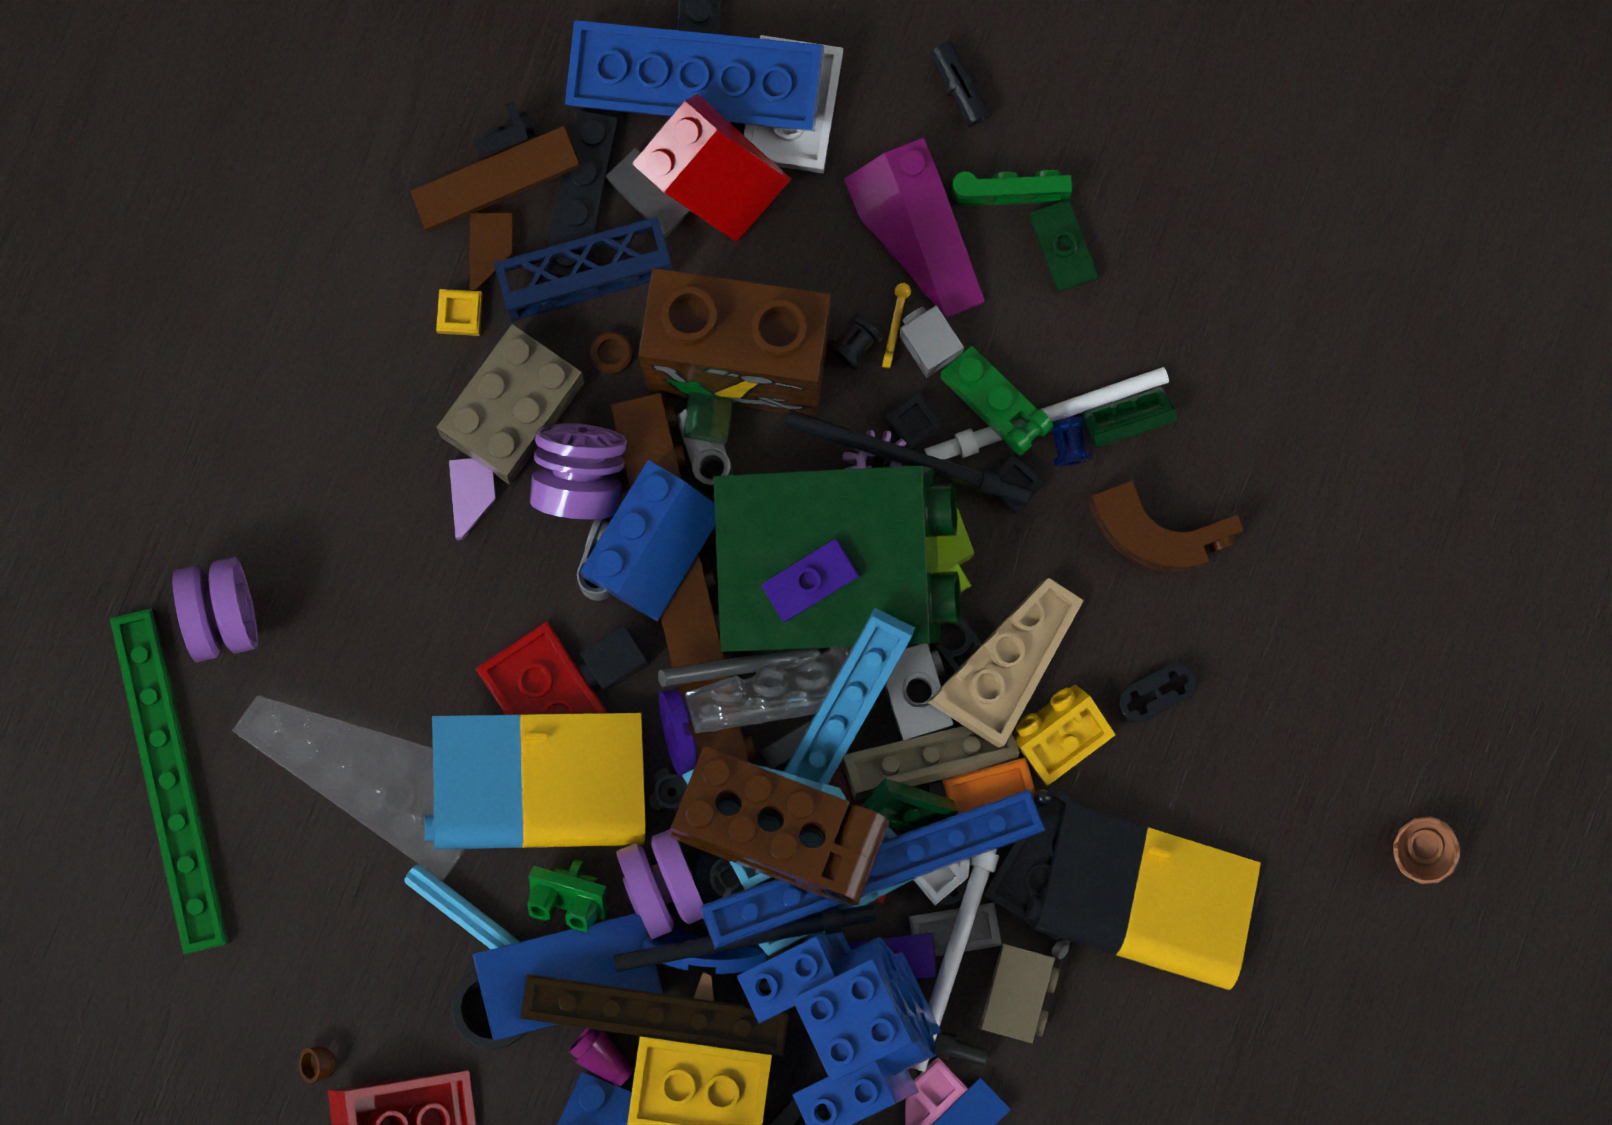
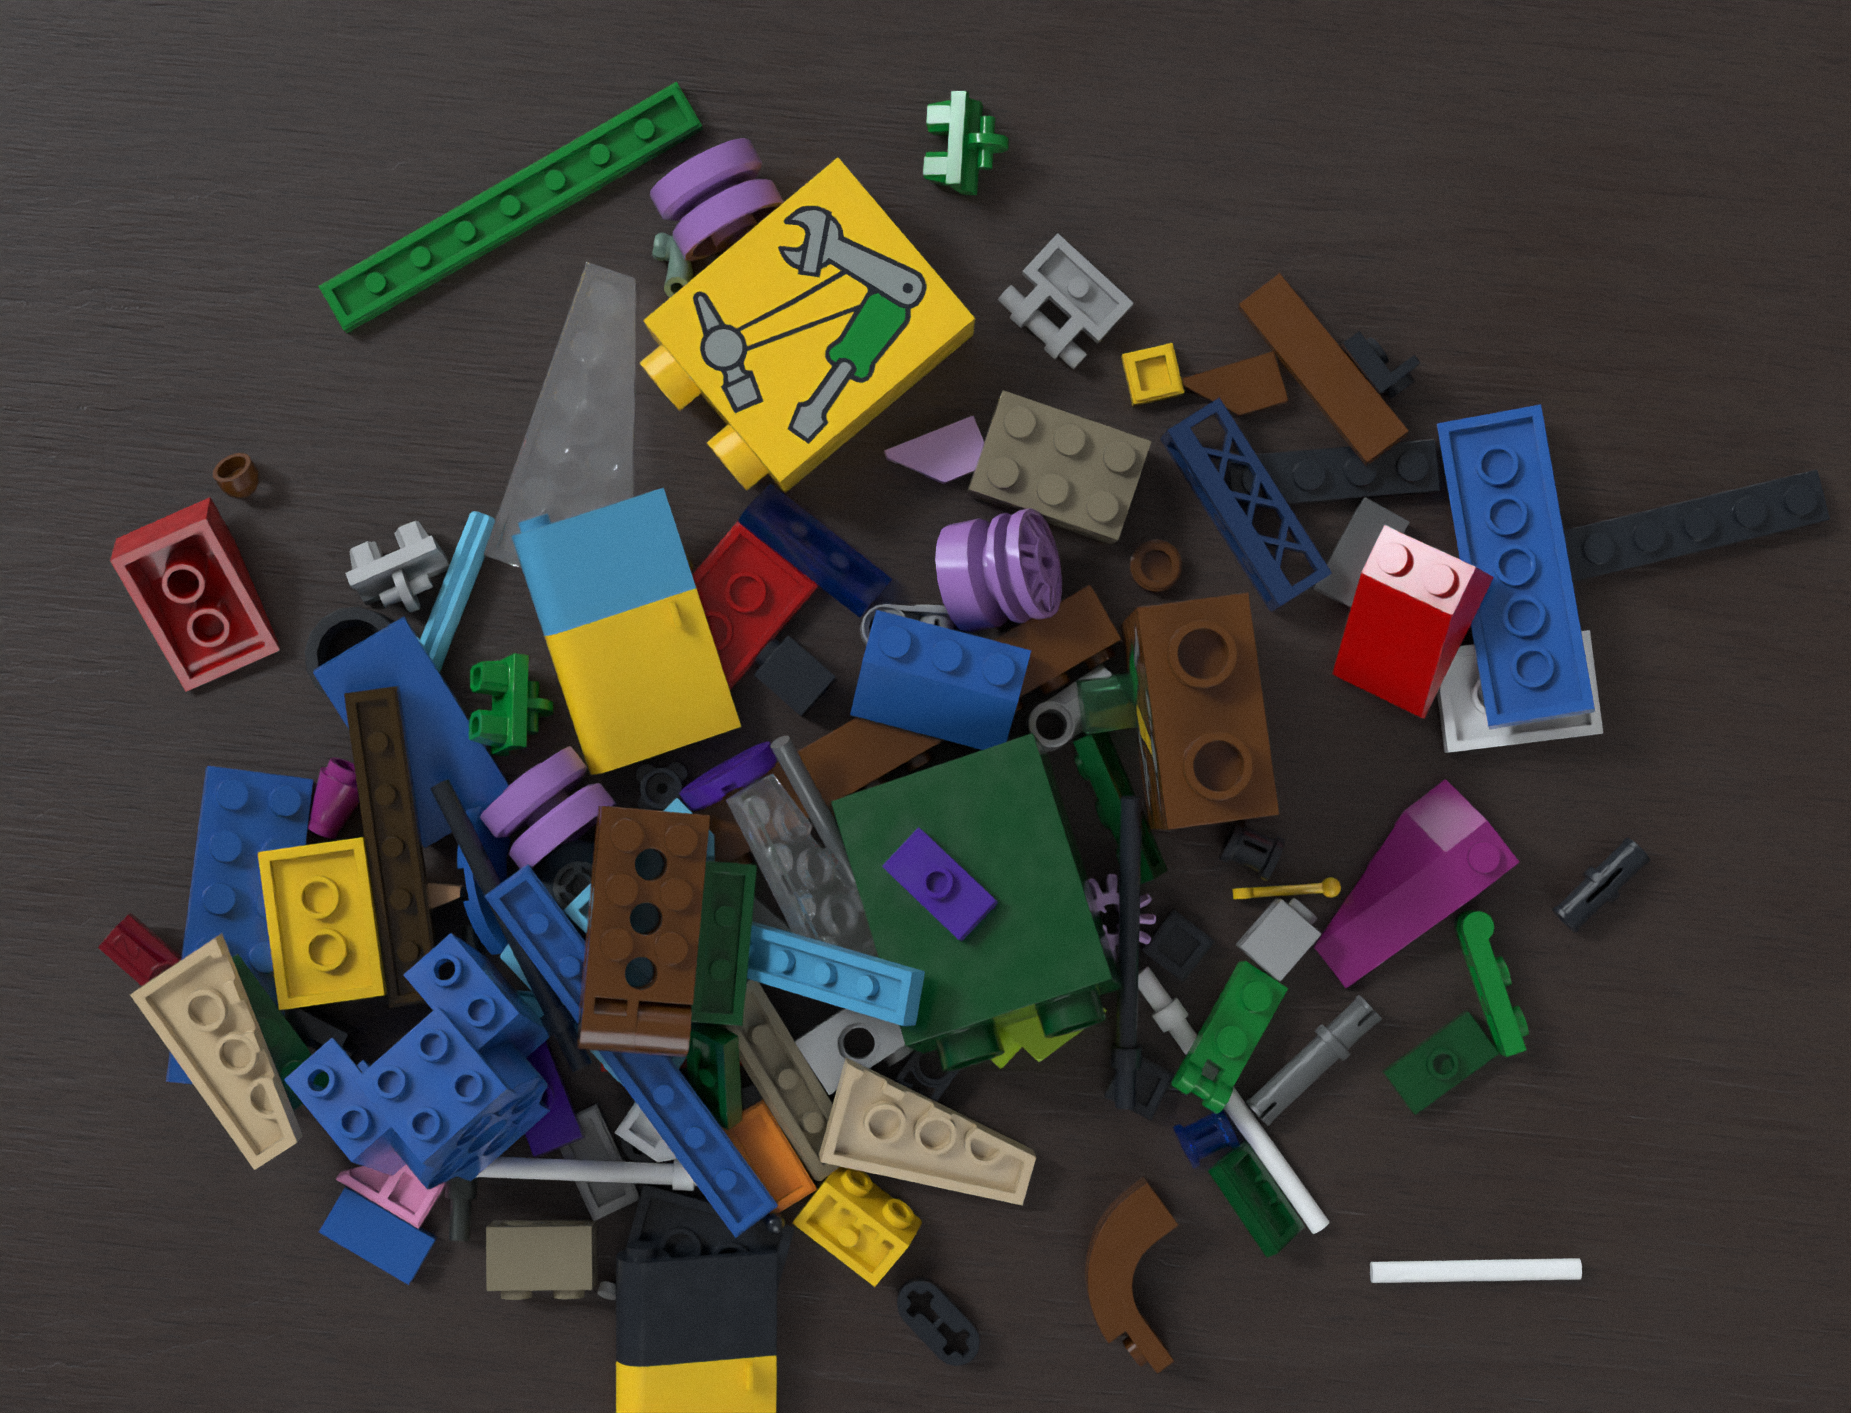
camera: 75 degrees right, 5 degrees up
(212, 402) = (969, 143): none -> green hips
(258, 658) = (679, 269): none -> sand green arm
(341, 570) = (805, 330): none -> yellow brick
(374, 351) = (1076, 290): none -> light grey plate
(436, 953) = (400, 573): none -> light grey hips
(518, 615) = (815, 550): none -> clear blue plate
(754, 439) = (1101, 765): none -> dark green plate
(809, 765) = (724, 943): none -> dark green plate
(1033, 341) = (1314, 1060): none -> dark grey pin
(1232, 266) = (1475, 1270): none -> white bar

